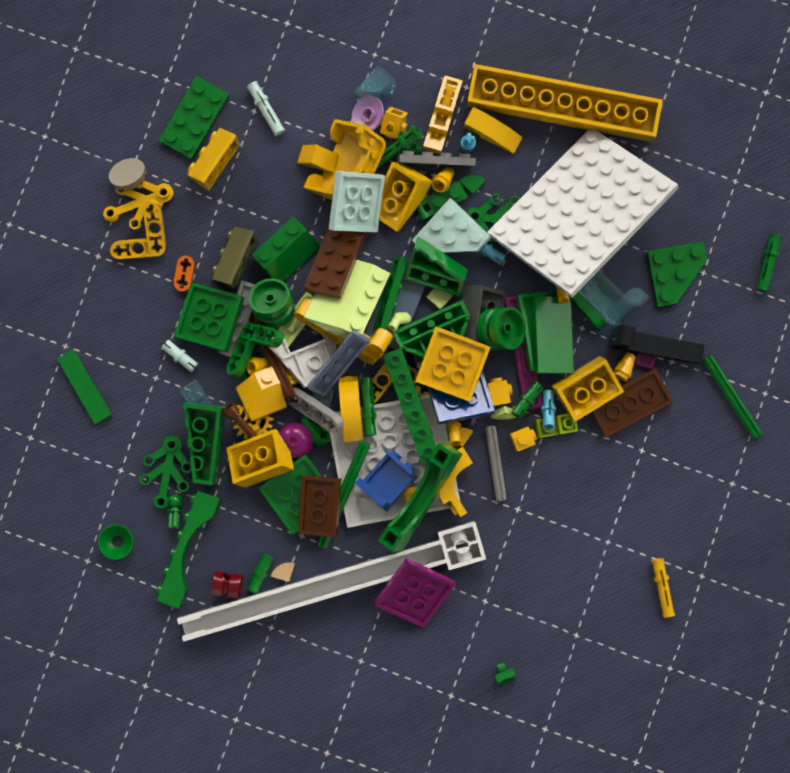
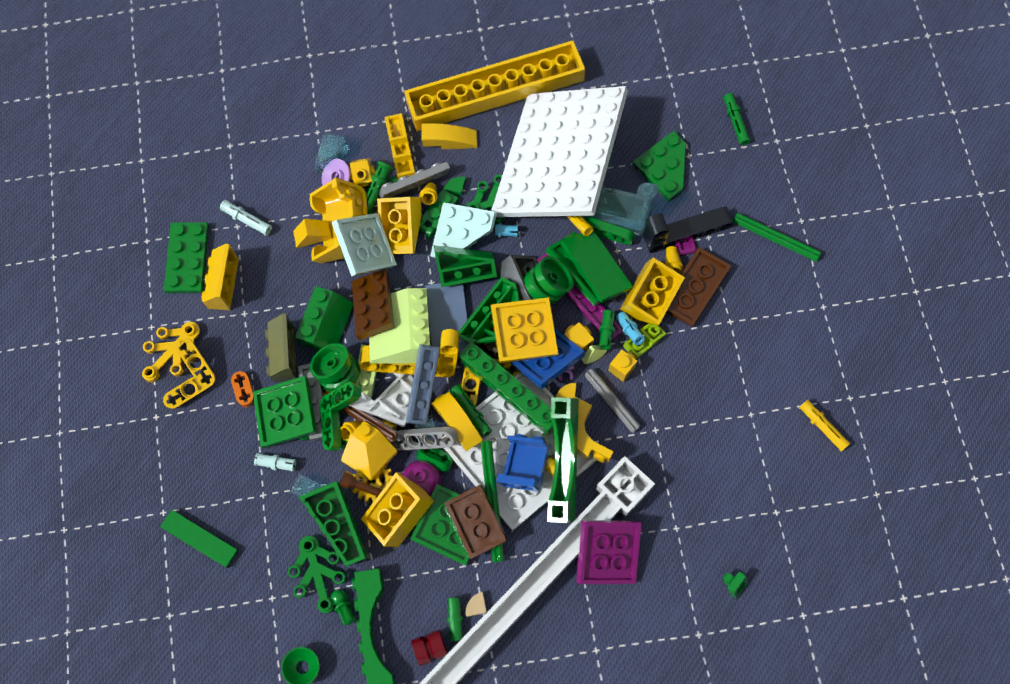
camera: 25 degrees left, 15 degrees down
(127, 174) = (148, 330): tile -> none
(390, 293) = (435, 301): green plate -> none
(399, 318) = (456, 321): yellowish green arm -> none
(439, 298) = (480, 288): yellowish green tile -> none
(454, 433) = (557, 388): yellow pin -> none
(468, 143) = (433, 153): medium azure axle -> none

